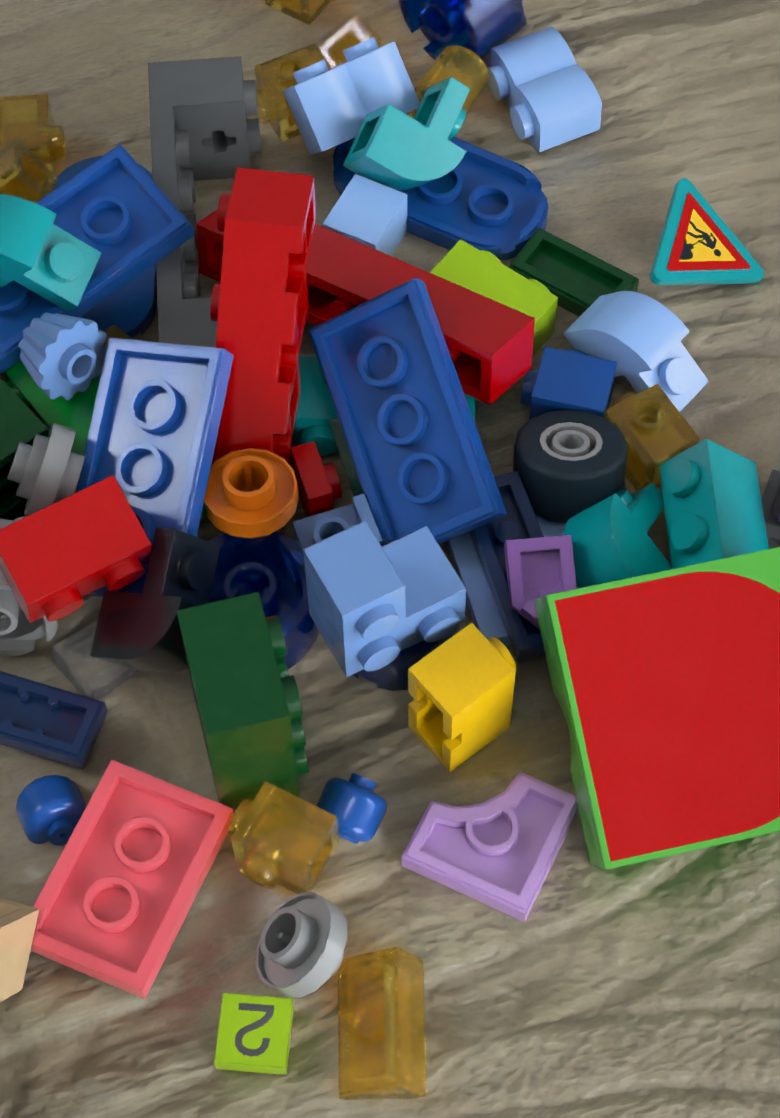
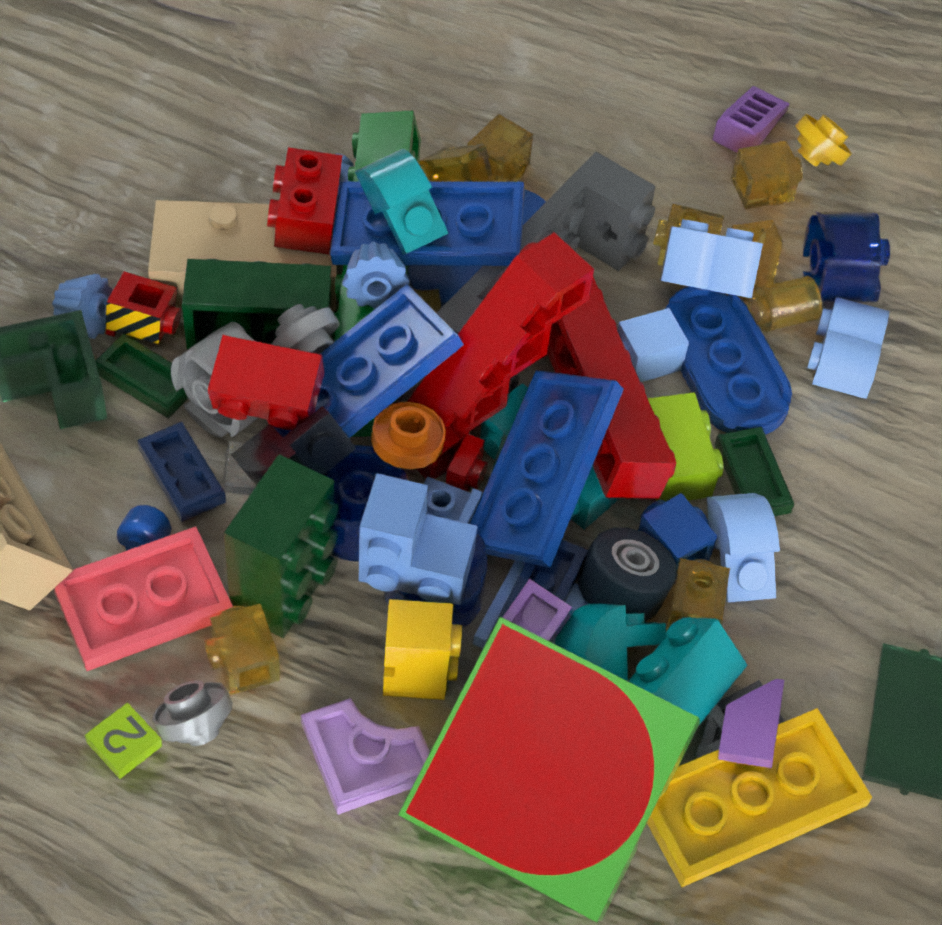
camera: 35 degrees right, 5 degrees down
(355, 805) = (304, 667): blue piece -> none
(381, 1026) = (196, 799): clear yellow slope -> none
(407, 149) = (710, 318): brick -> none
(699, 245) = (852, 512): piece -> none

